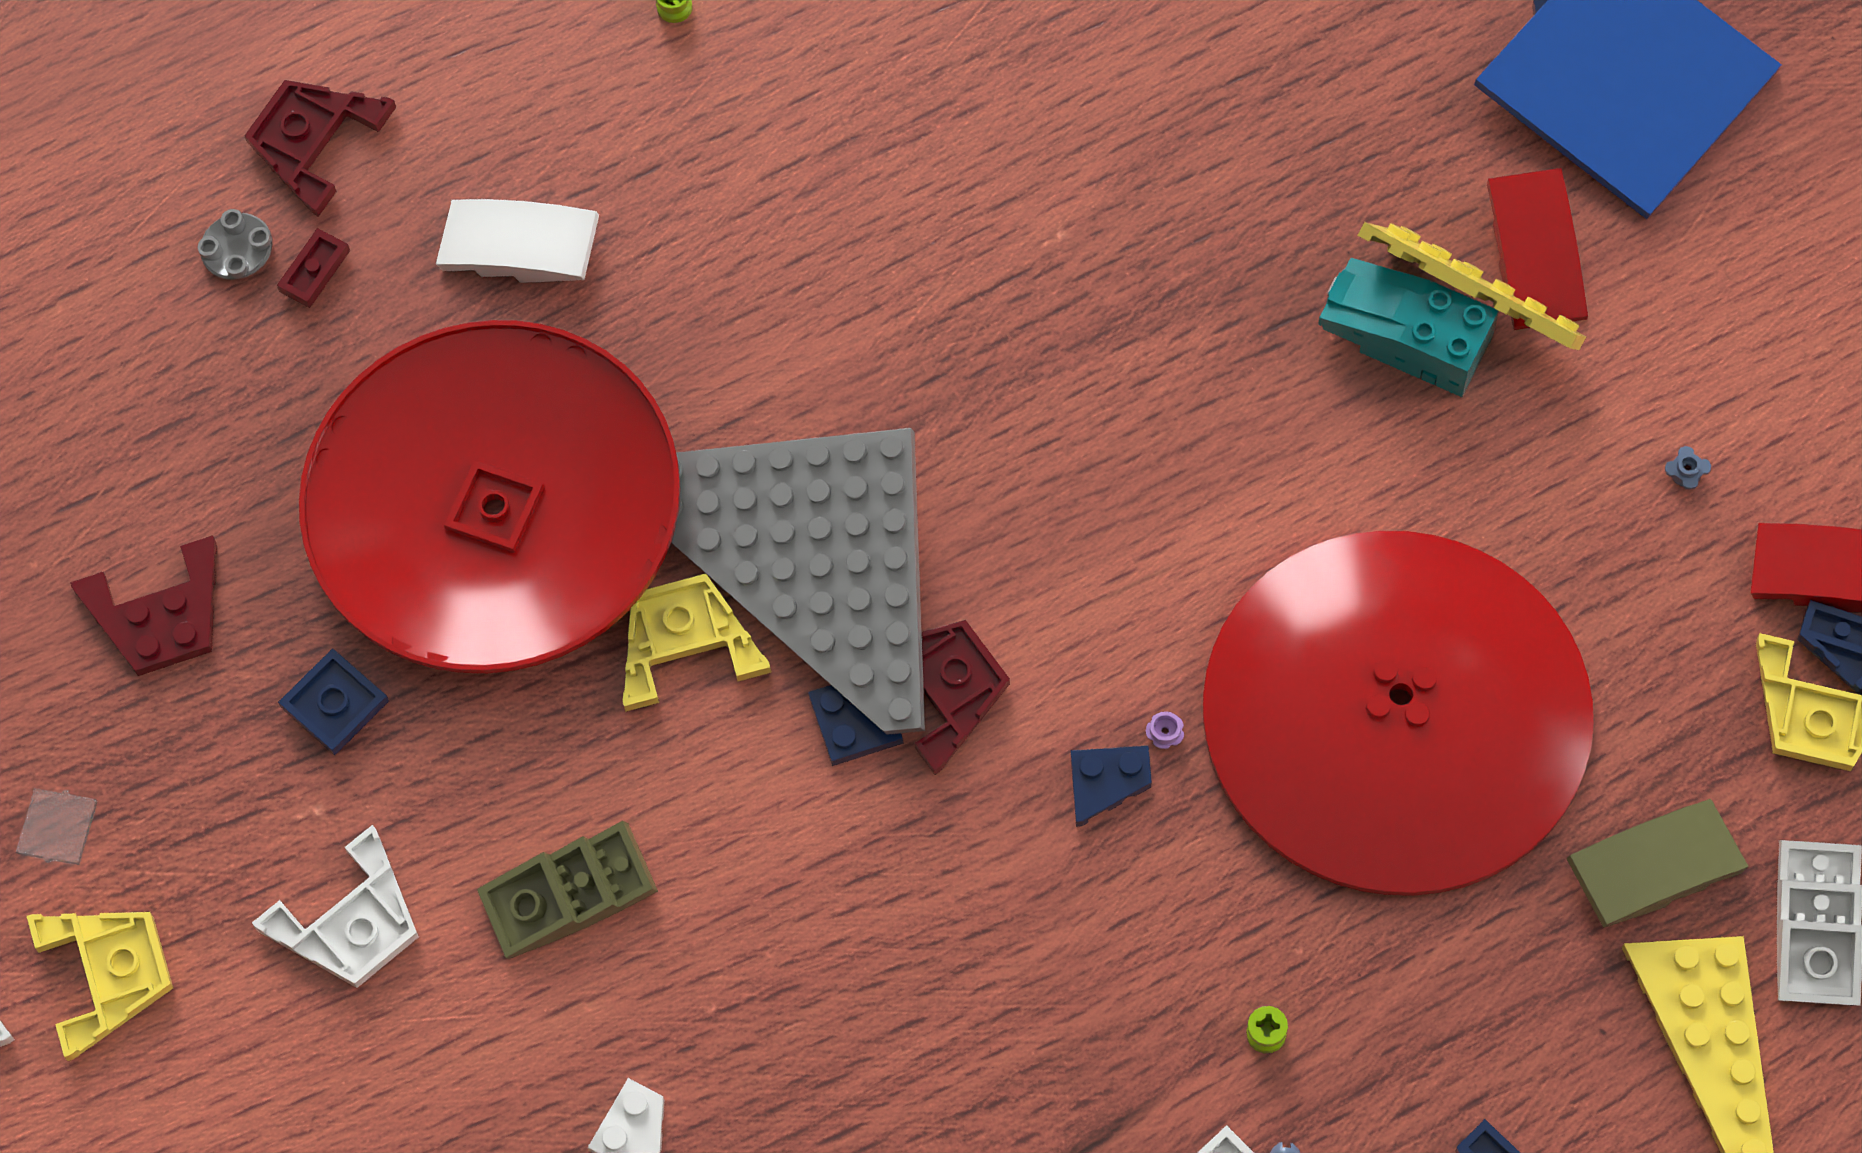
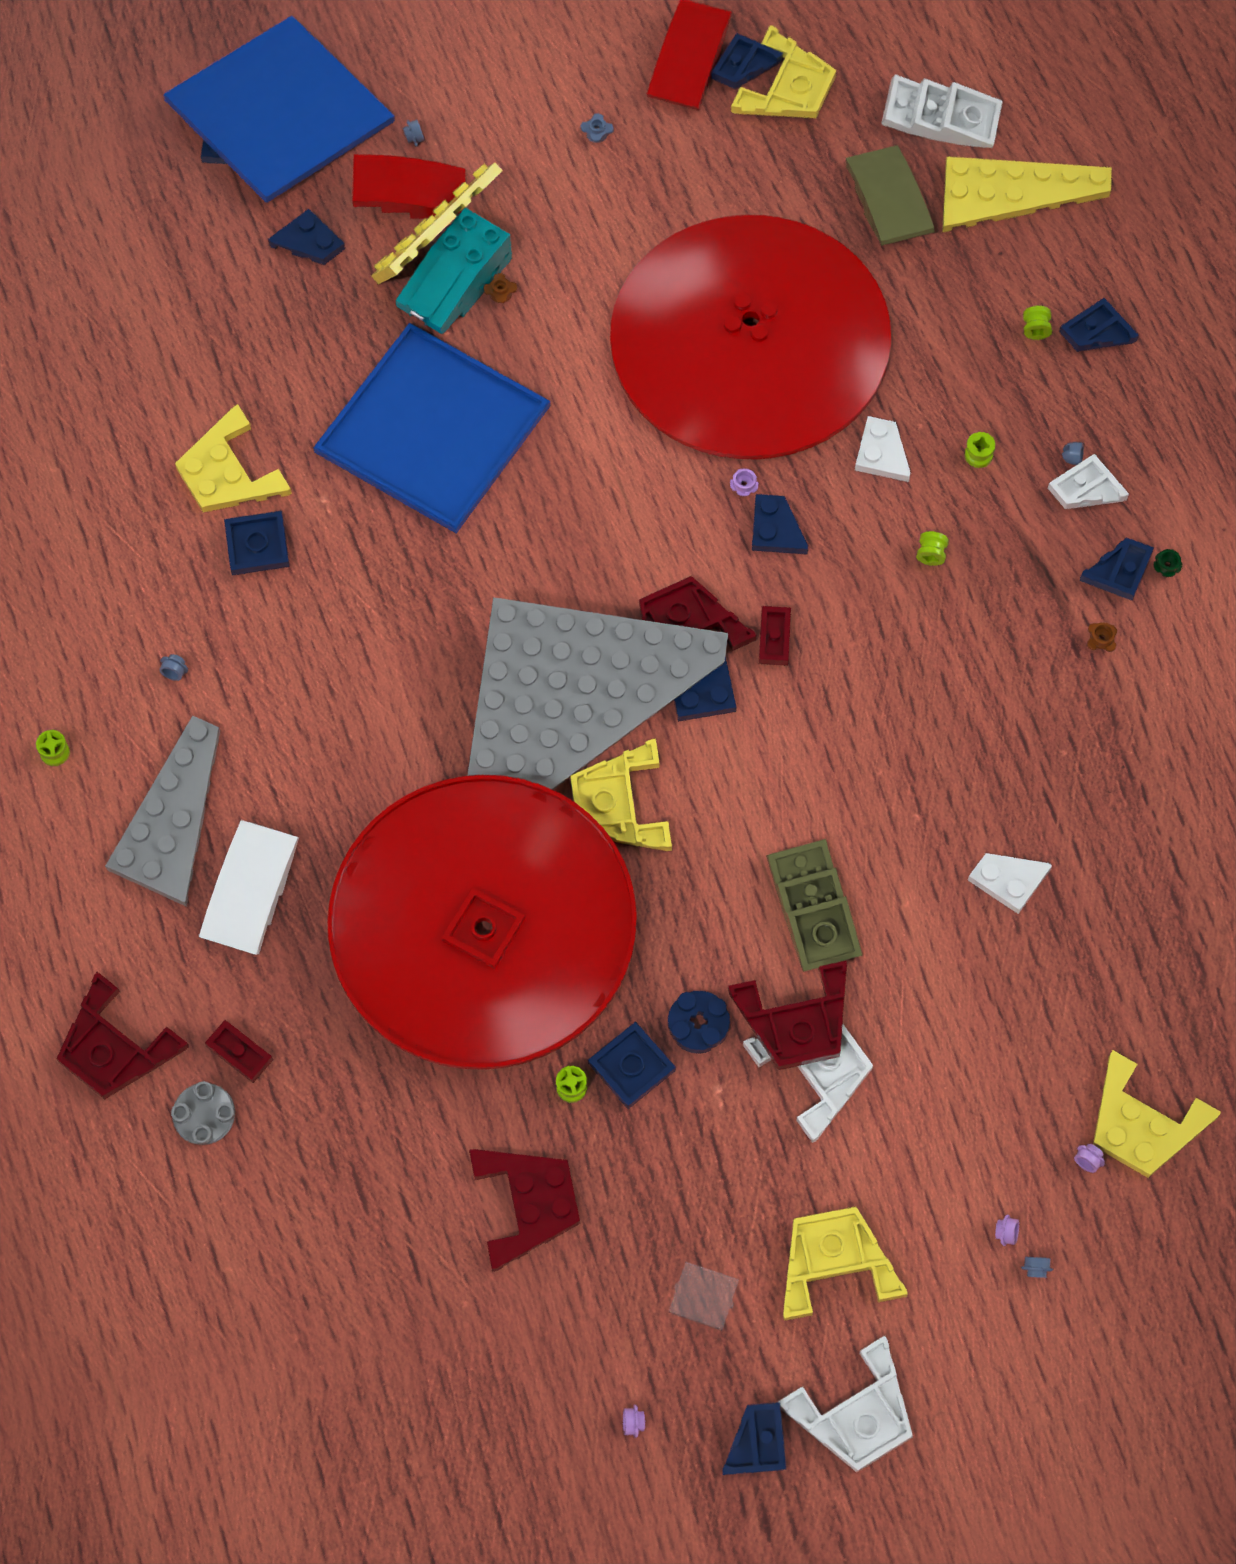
camera: 85 degrees left, 0 degrees up
(299, 628) = (570, 1077): none -> lime wheel
(385, 888) = (802, 1030): none -> dark red wing
(387, 756) = (684, 1031): none -> dark blue plate
(598, 142) = (167, 827): none -> light grey wing
(797, 107) = (173, 667): none -> sand blue plate
(941, 795) = (774, 635): none -> dark red plate
(980, 166) = (256, 543): none -> dark blue plate
(1076, 103) = (216, 474): none -> light yellow wing
(1100, 981) = (932, 548): none -> lime wheel
(1185, 341) = (432, 427): none -> blue tile
(1248, 901) = (882, 451): none -> white wing
(1403, 396) = (500, 295): none -> dark orange plate
(1438, 148) = (308, 238): none -> dark blue wing
(1486, 1087) = (1037, 322): none -> lime wheel
(1628, 243) = (413, 132): none -> sand blue plate

